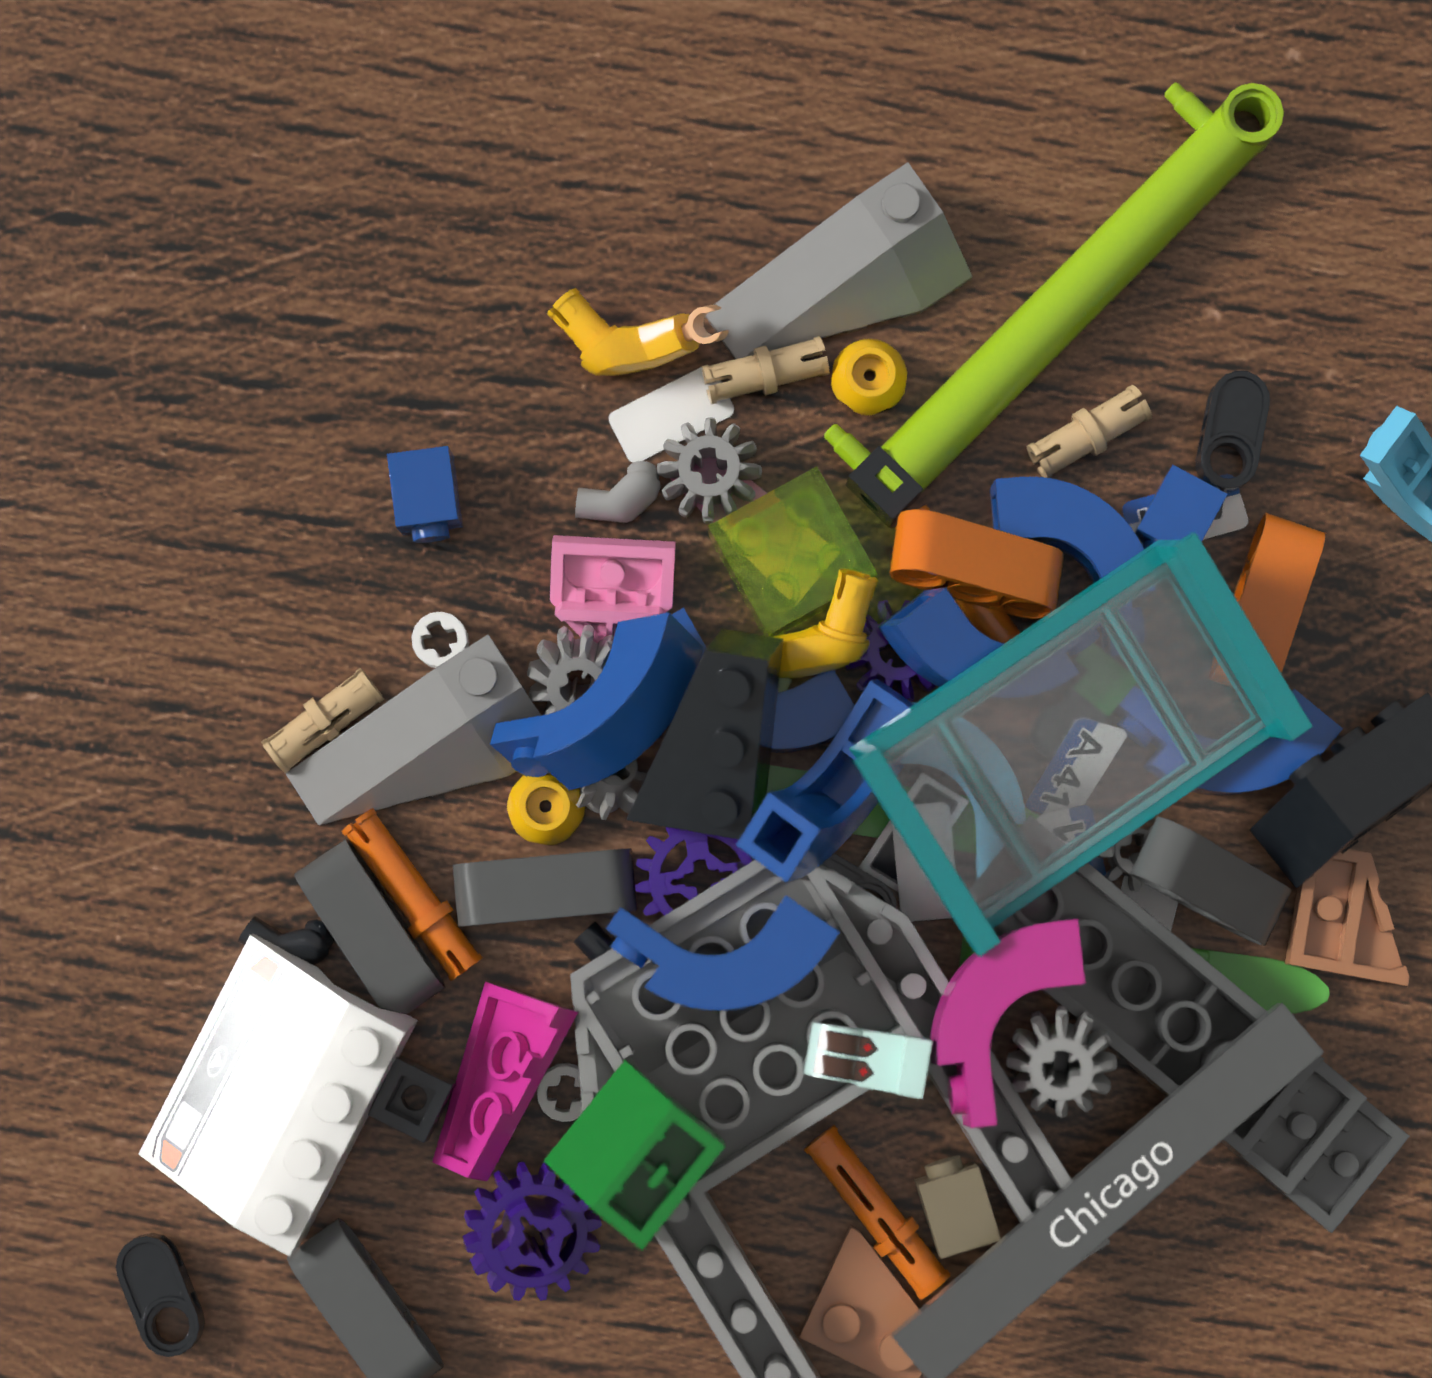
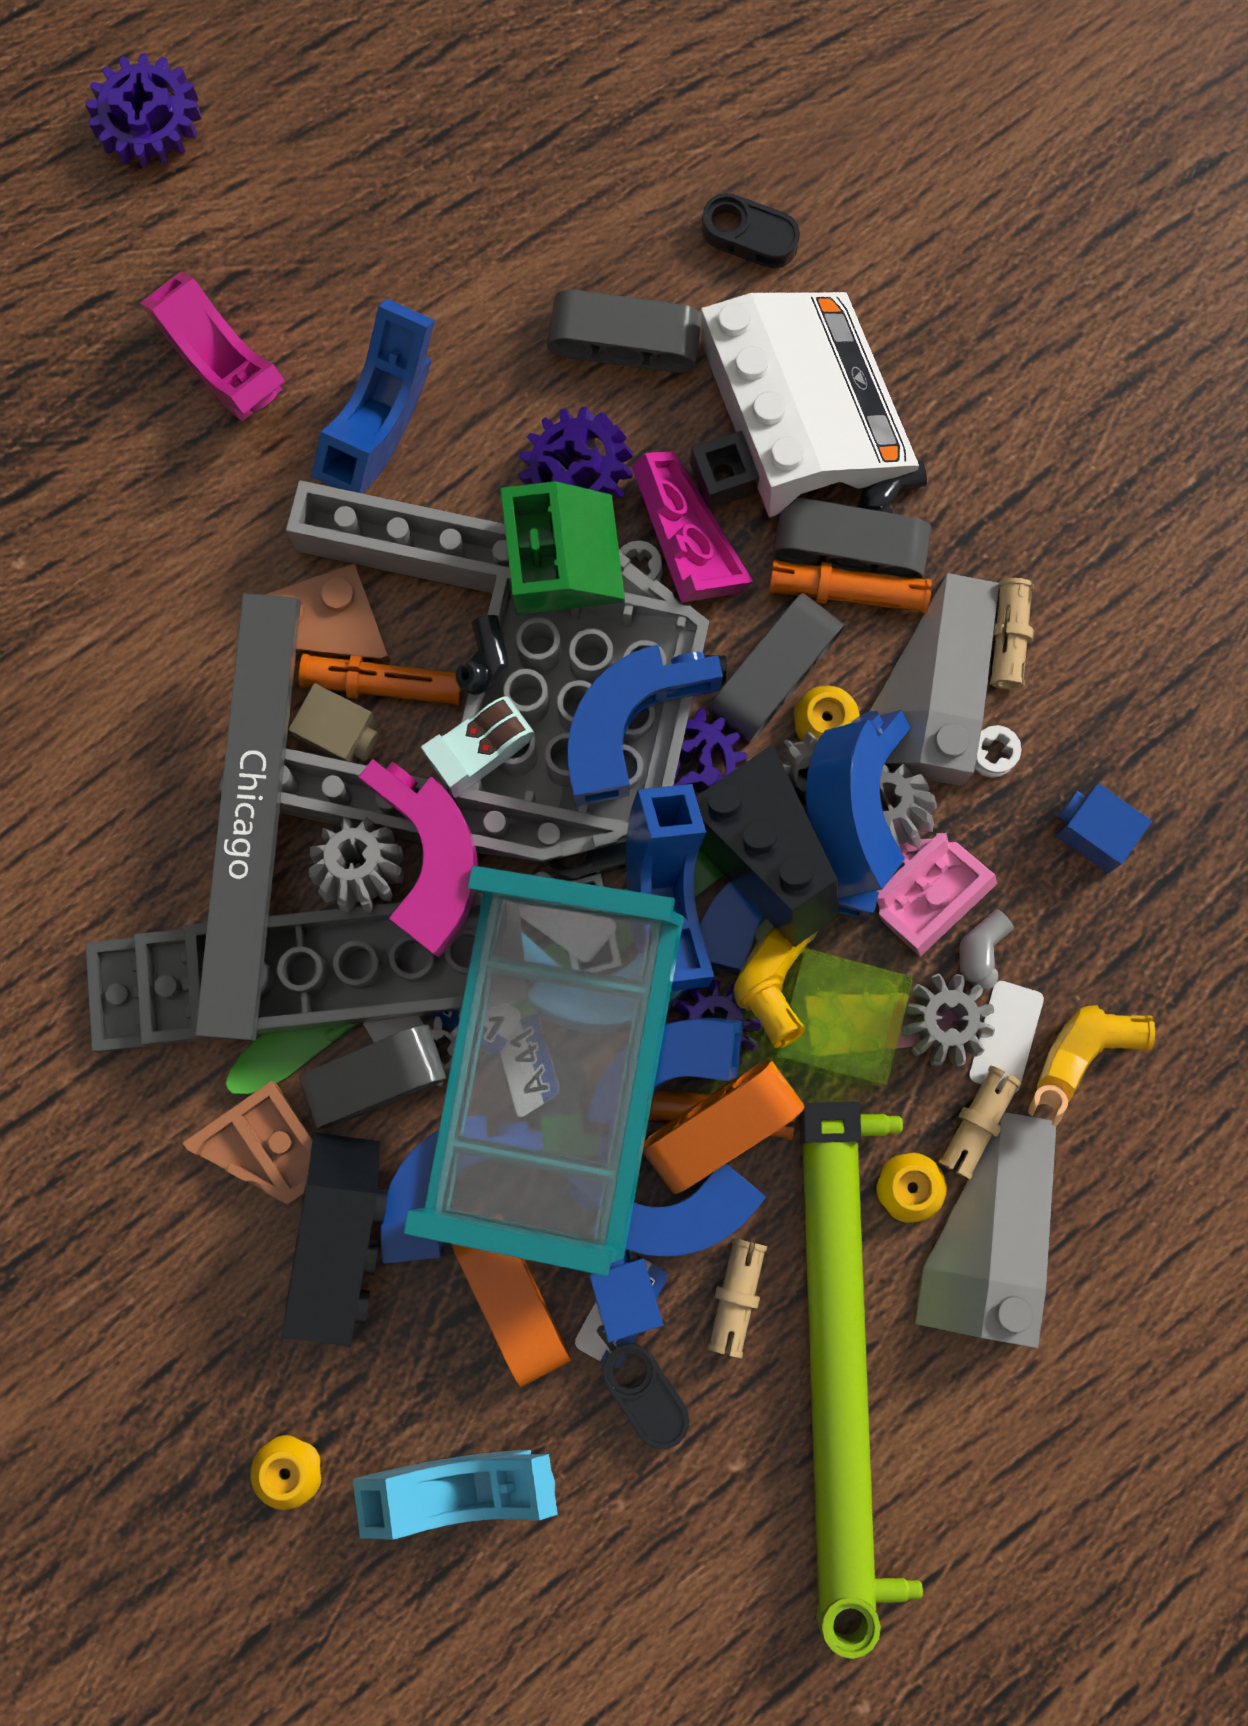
camera: 135 degrees right, 5 degrees down
(786, 1123) = (488, 662): none -> black arm

